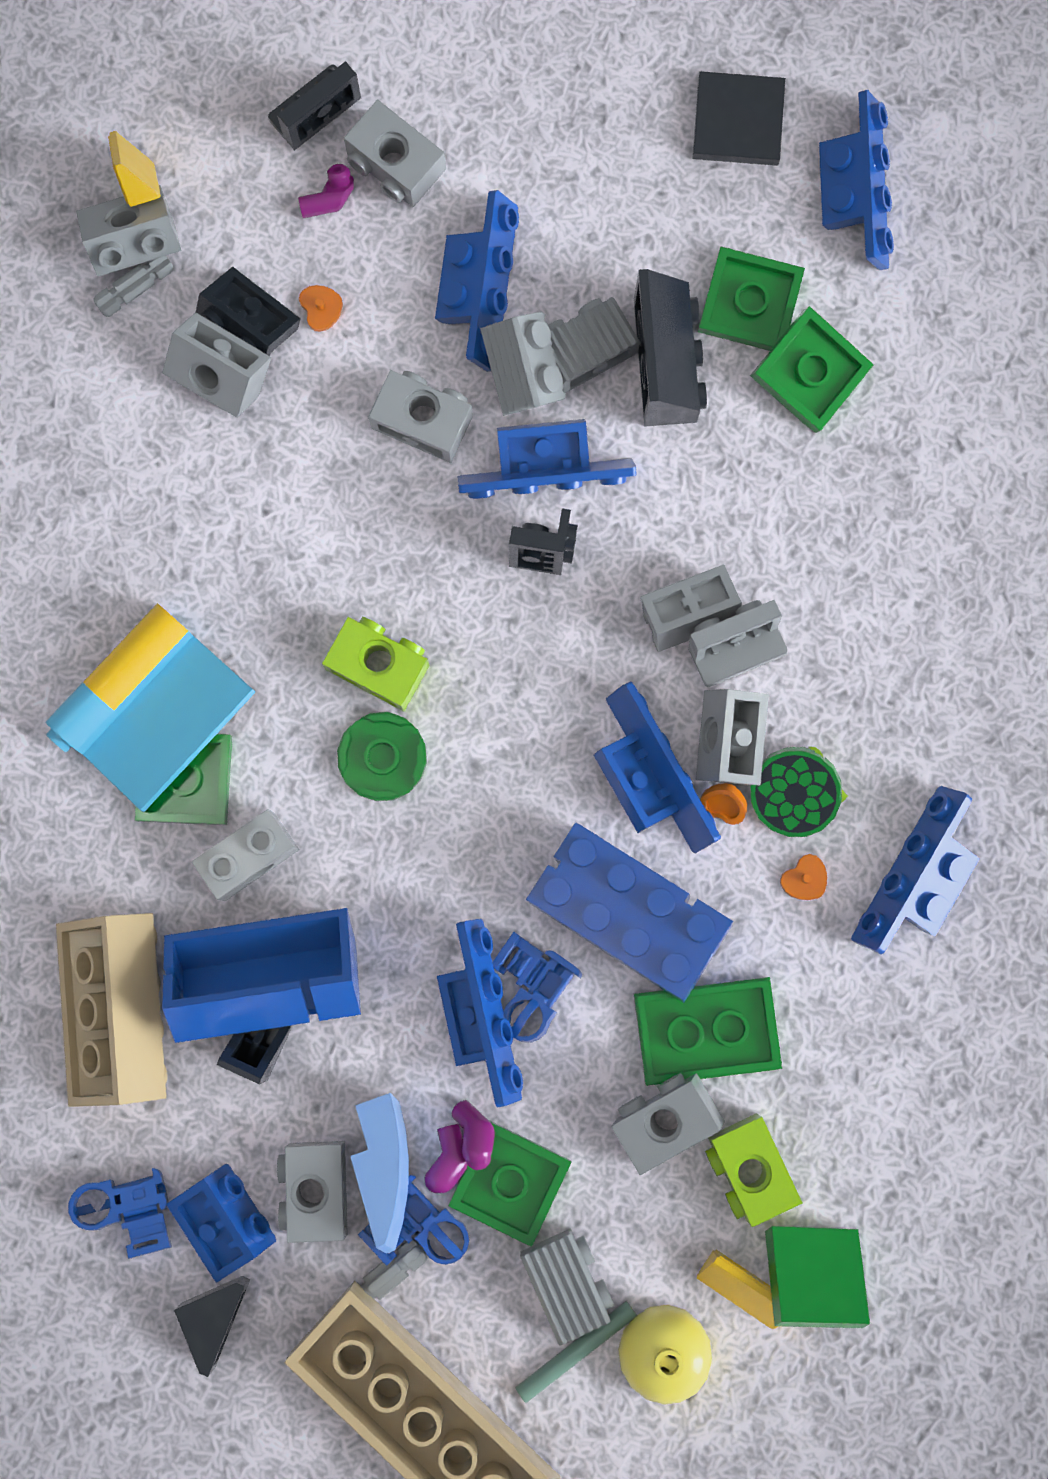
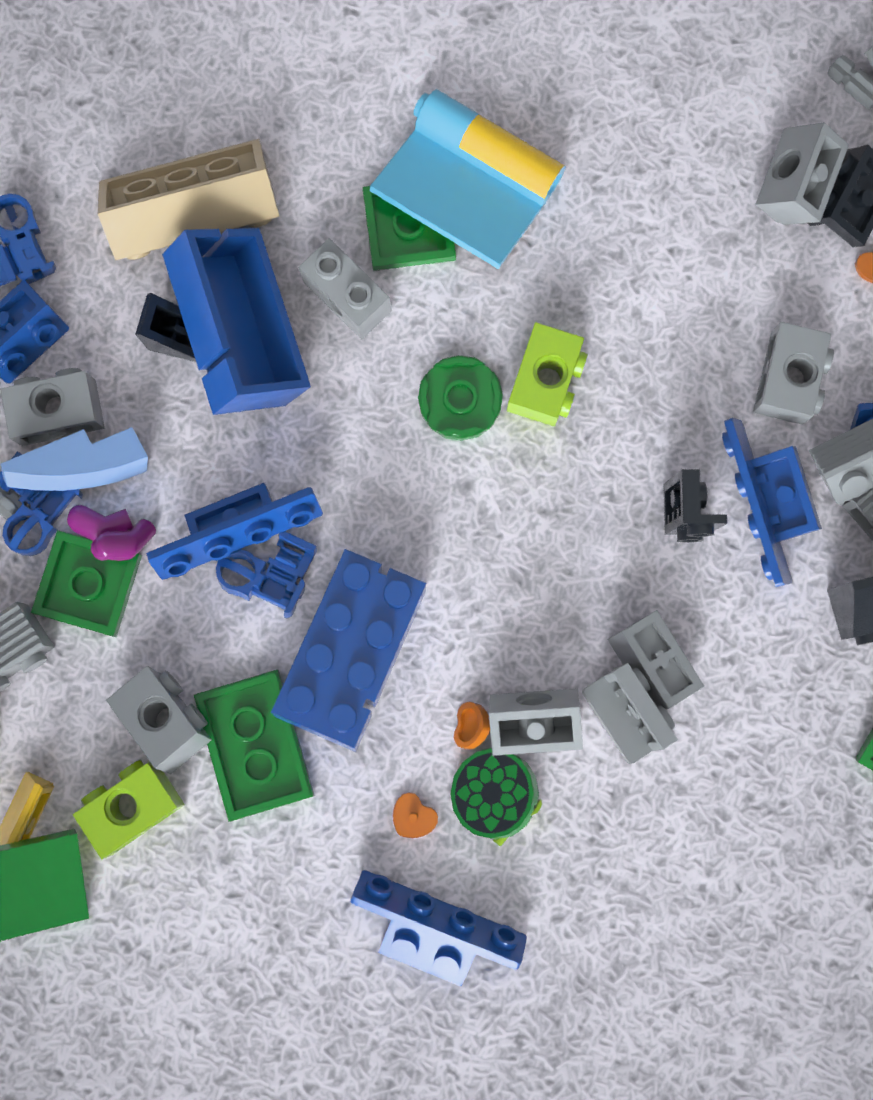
camera: 85 degrees right, 0 degrees up
(649, 775) = (484, 648): blue bracket -> none

